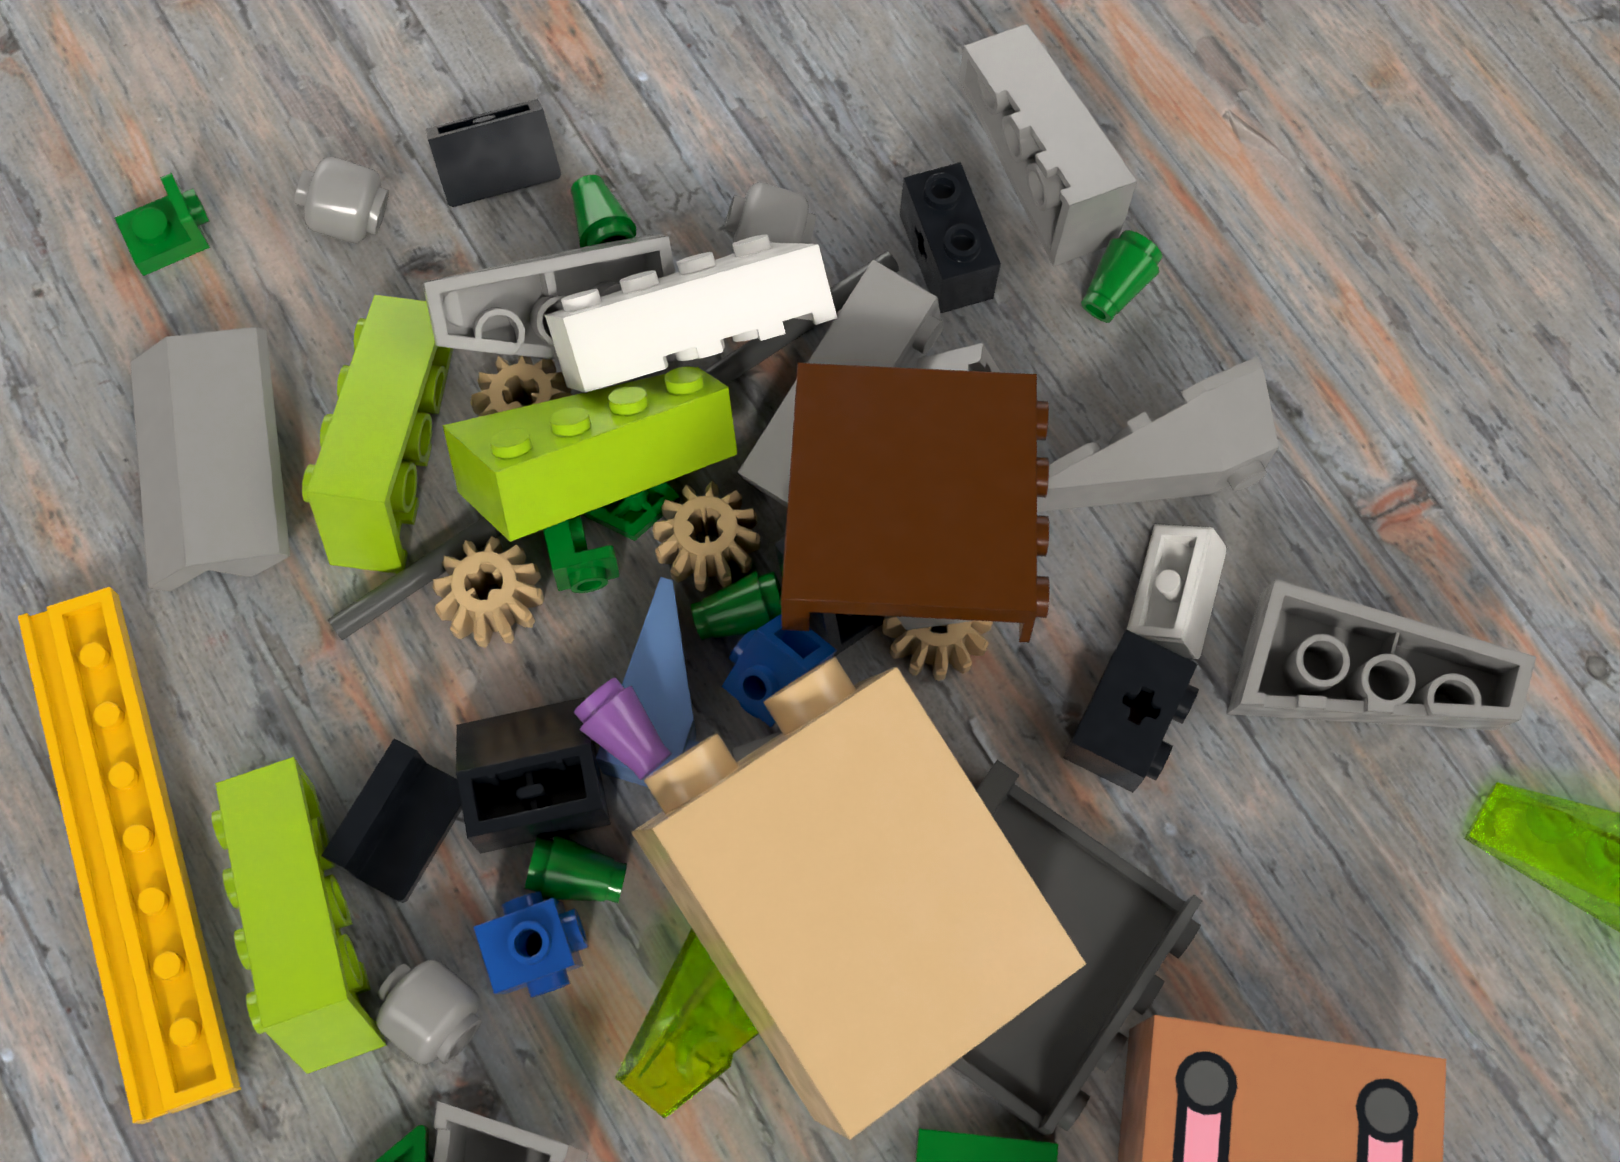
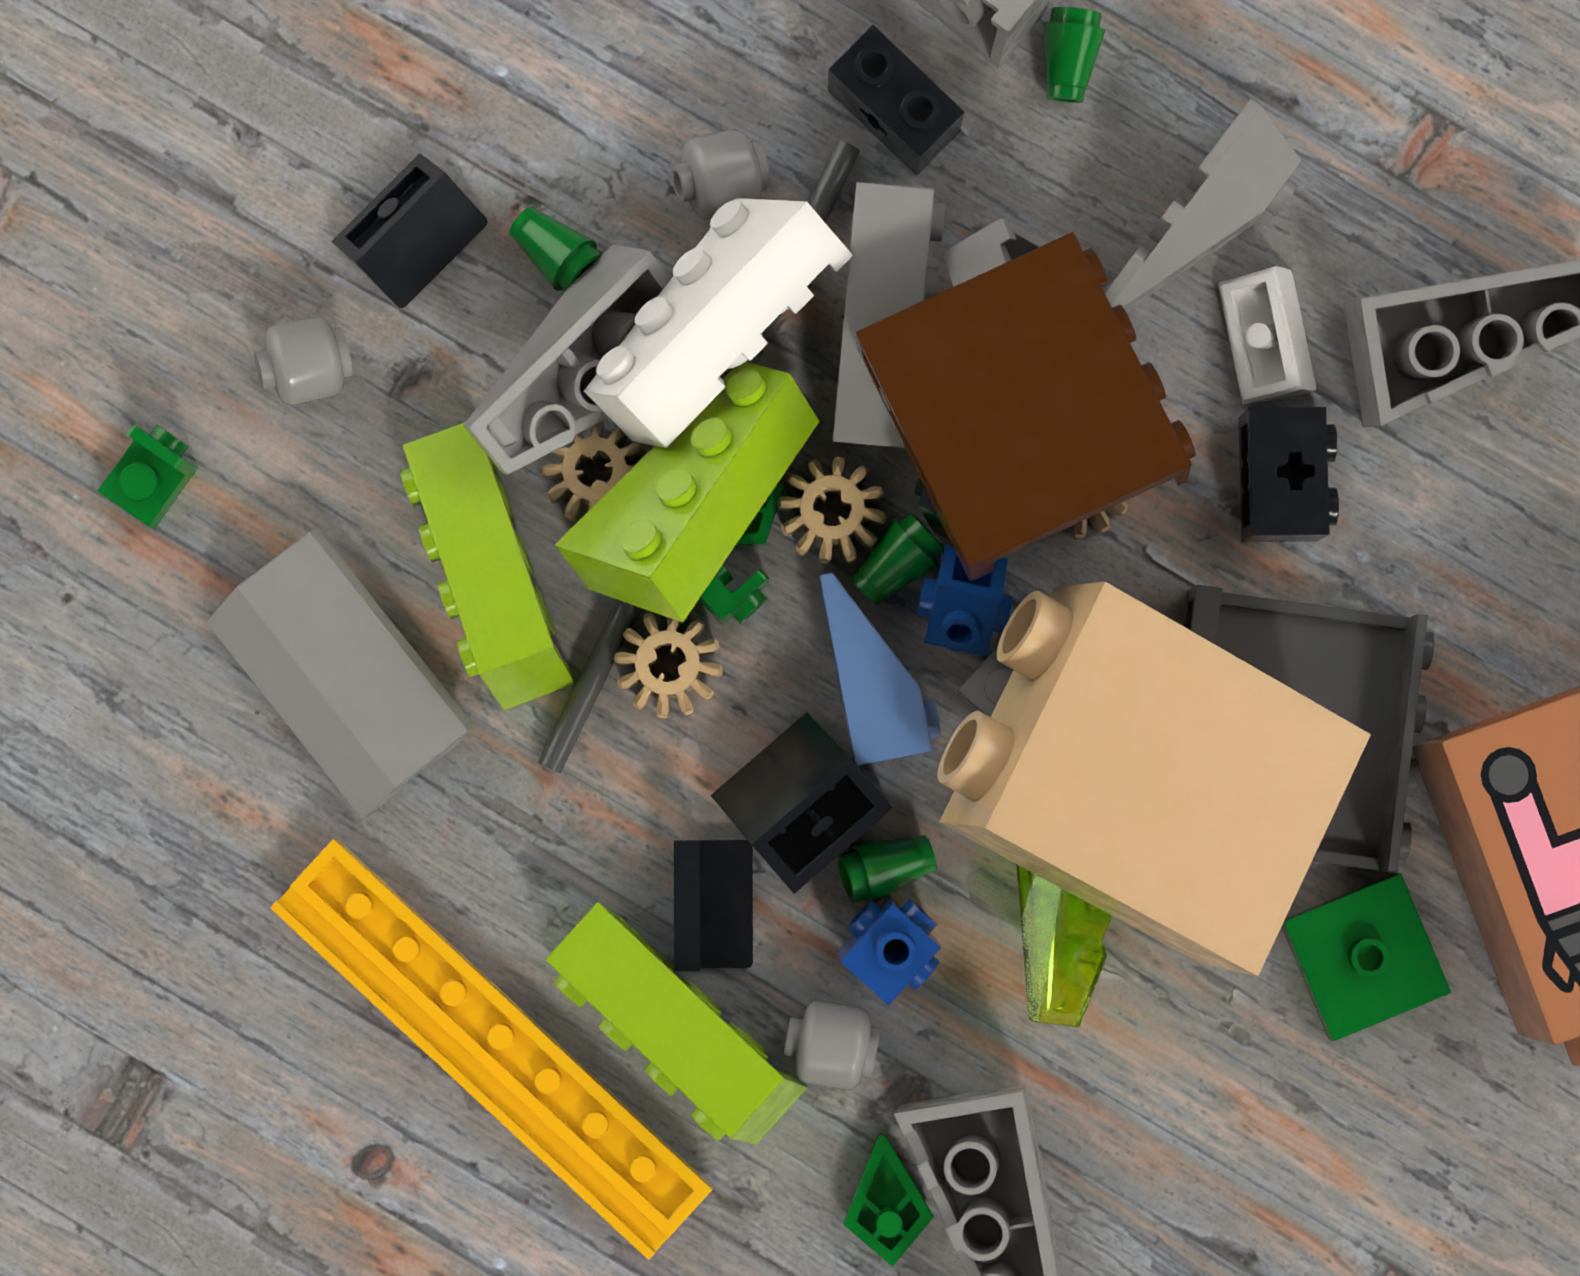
camera: 25 degrees left, 15 degrees up
(622, 727) = (870, 731): medium lavender cone -> none

